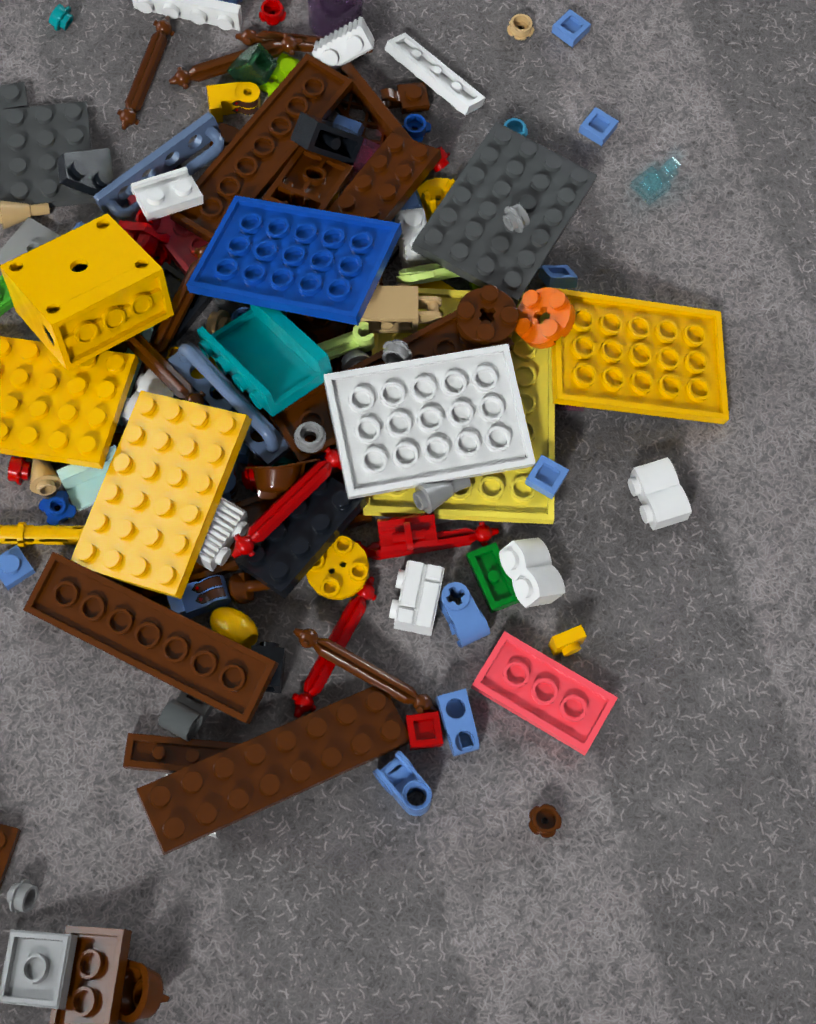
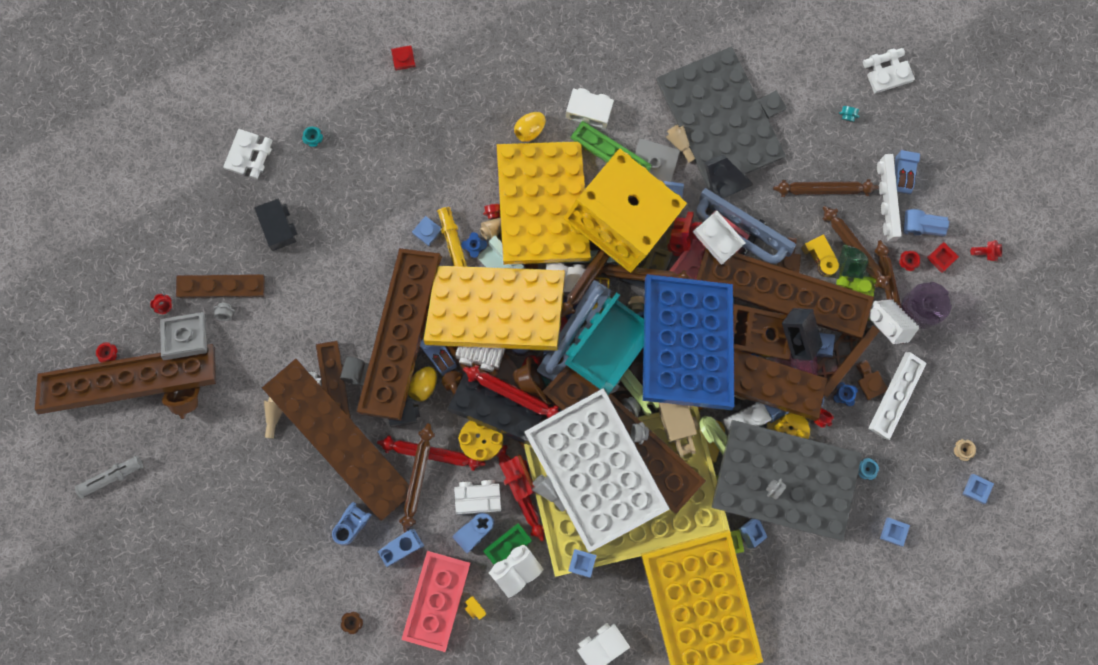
camera: 75 degrees right, 10 degrees up
(203, 857) = (272, 416): none -> tan cone
(306, 429) = (562, 386): light grey plate -> none
(424, 730) = (389, 527): red plate -> none
(492, 301) = (675, 489): reddish brown plate -> none
(533, 306) = (702, 518): orange plate -> none
(654, 183) = (860, 586): clear light blue plate -> none

